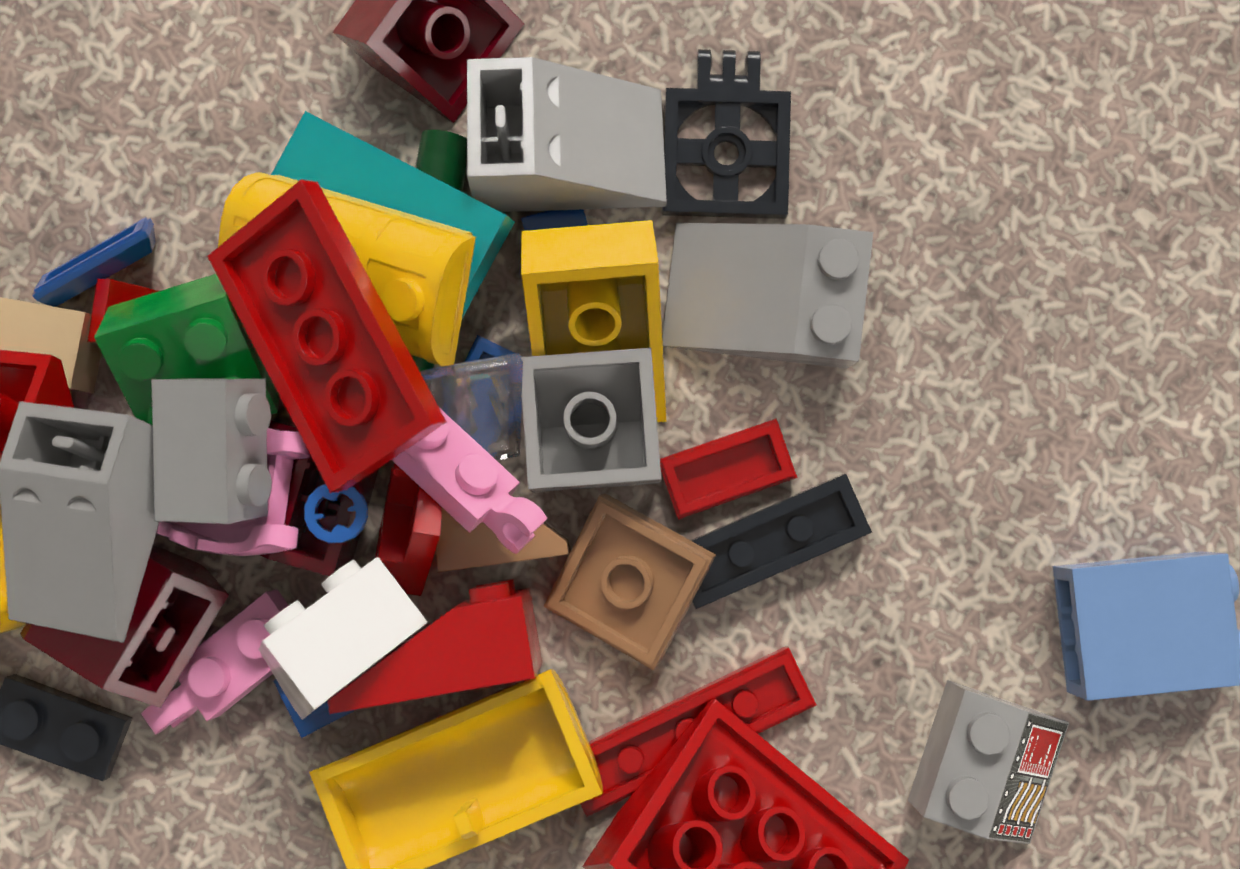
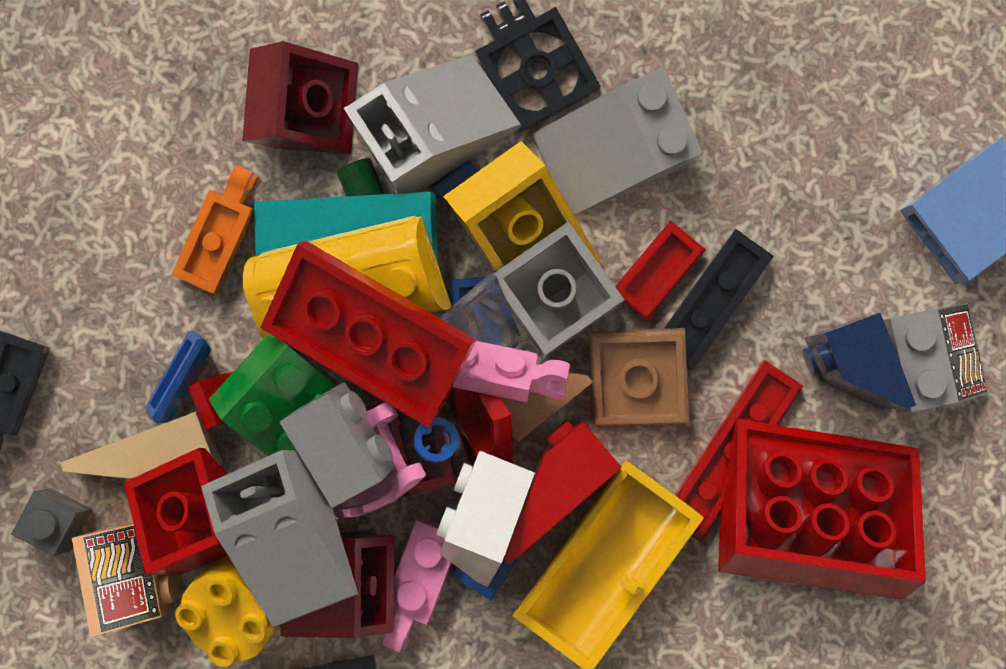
camera: 30 degrees left, 0 degrees up
(242, 123) = (217, 234): none -> orange plate
(901, 717) = (860, 362): none -> dark blue slope

